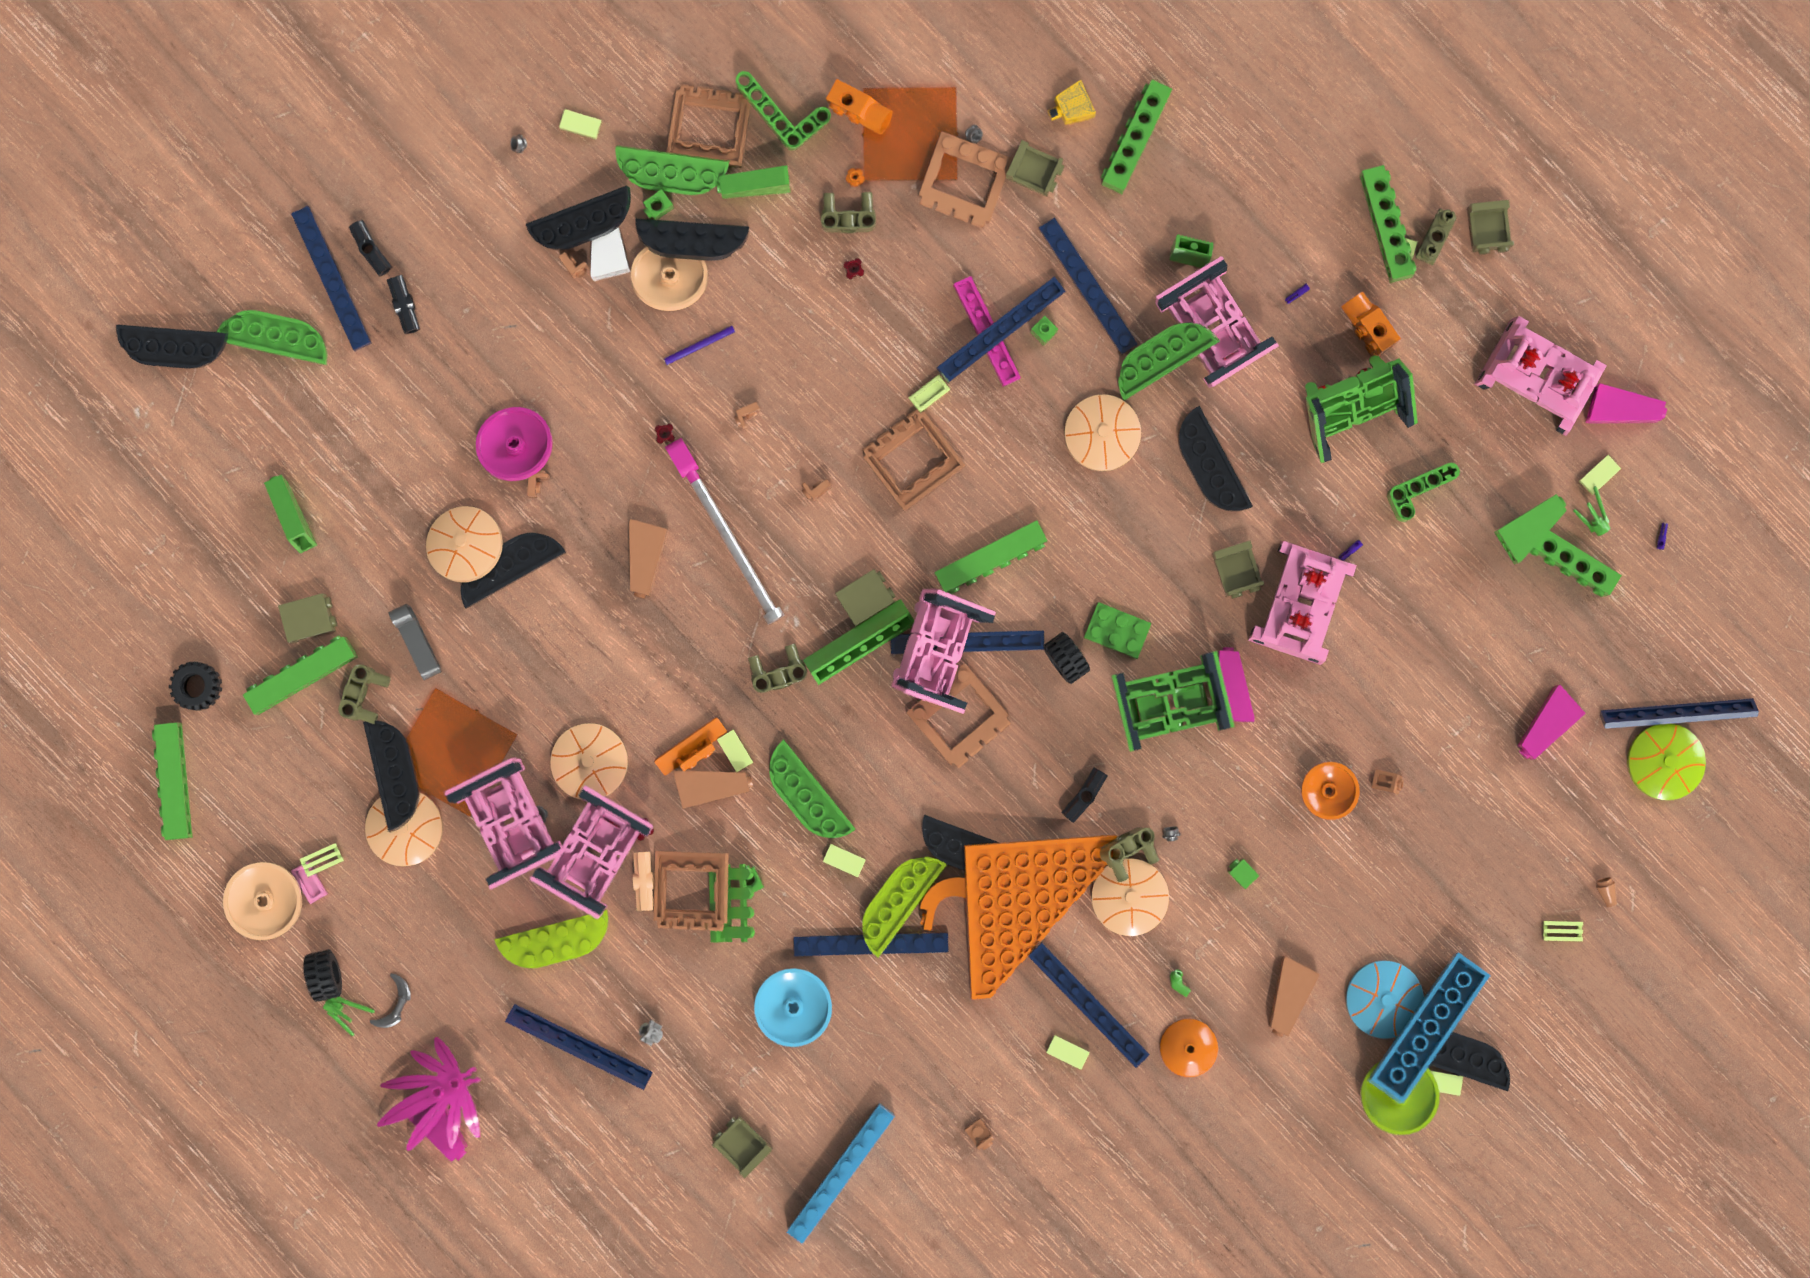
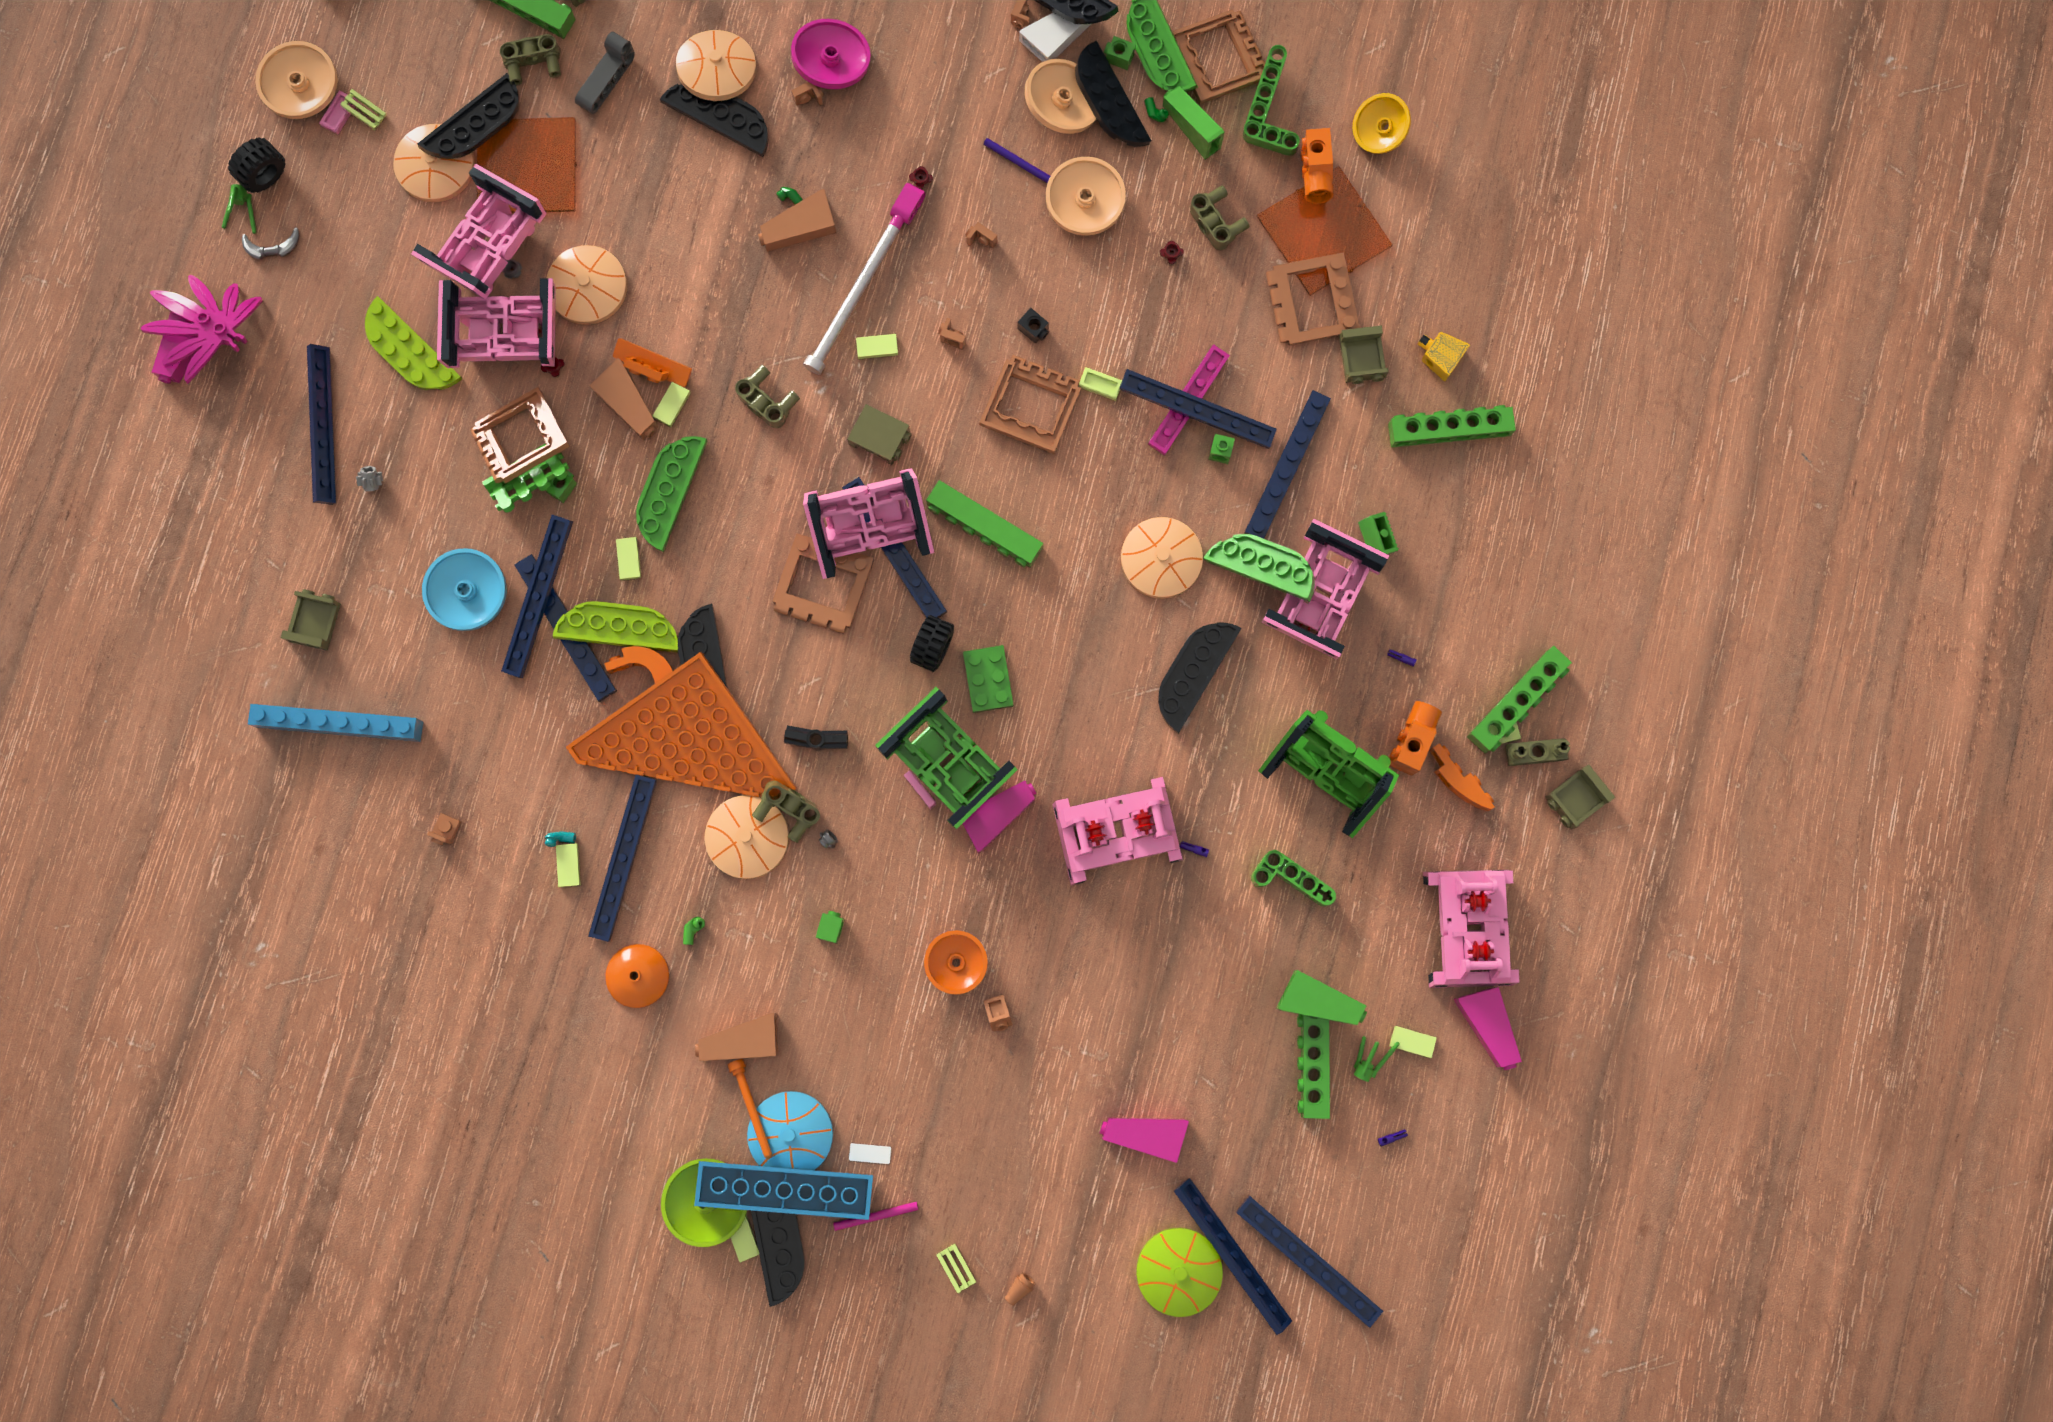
camera: 60 degrees right, 5 degrees down
(615, 547) = (789, 193): none -> green arm
(643, 881) = (504, 392): light nougat piece -> none
(726, 209) = (1153, 112): none -> green arm
(766, 309) = (1085, 196): none -> light nougat dish
(787, 555) = (877, 346): none -> yellowish green tile
(835, 951) = (537, 596): none -> dark blue plate
(843, 40) = (1374, 115): none -> yellow dish
(843, 424) = (1029, 318): none -> black brick
(855, 182) = (1254, 210): orange plate -> none
(859, 641) = (833, 450): bright green brick -> none
(974, 134) = (1360, 288): flat silver plate -> none
(1040, 1046) = (552, 838): none -> teal arm
(1175, 737) = (918, 787): none -> bright pink tile
(1237, 569) = (1112, 754): olive panel -> none
(1310, 1010) = (737, 1069): none -> orange piece
(1428, 309) = (1464, 787): none -> orange slope
(1435, 946) = (869, 1153): none -> white sticker
(1488, 965) = (876, 1216): none -> dark pink bar
(1717, 657) = (1309, 1261): none -> dark blue plate

